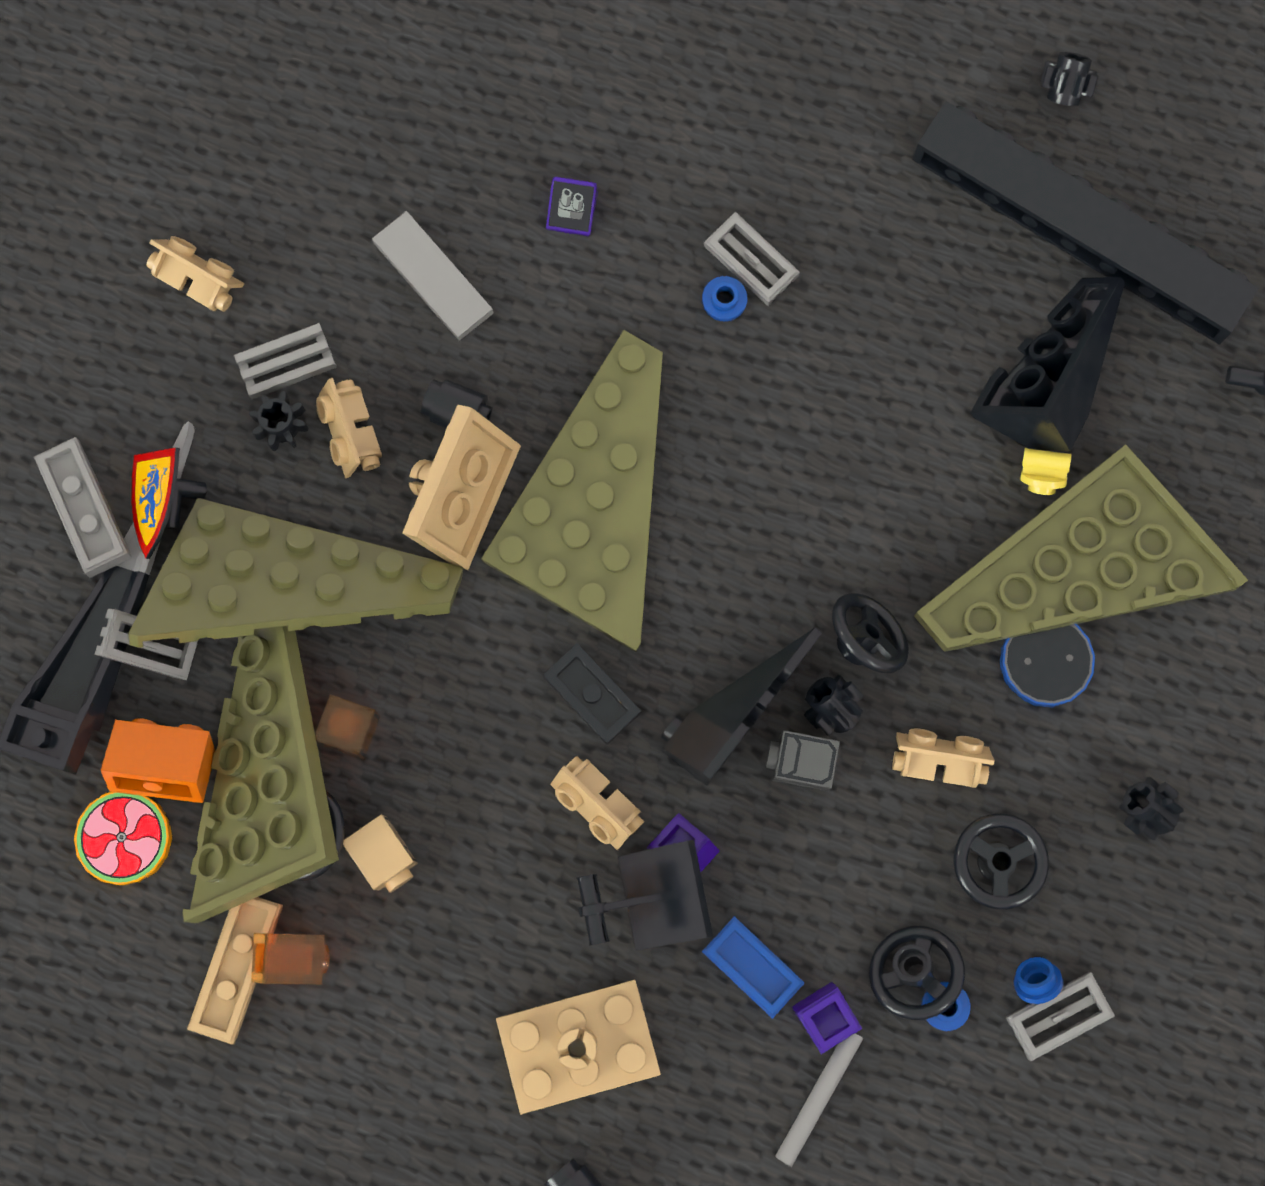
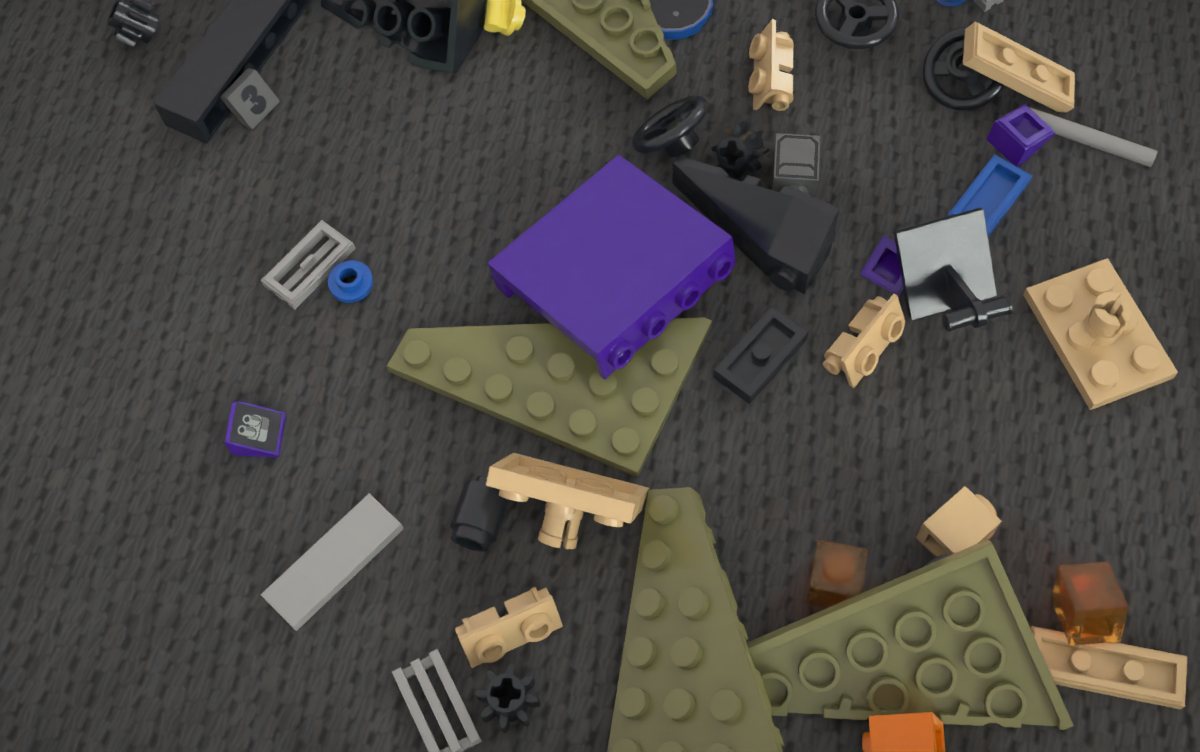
camera: 90 degrees left, 15 degrees down
(701, 553) = (615, 263): none -> dark purple panel
(900, 1026) = (1018, 68): none -> tan tile
(954, 200) = (250, 98): none -> dark grey tile

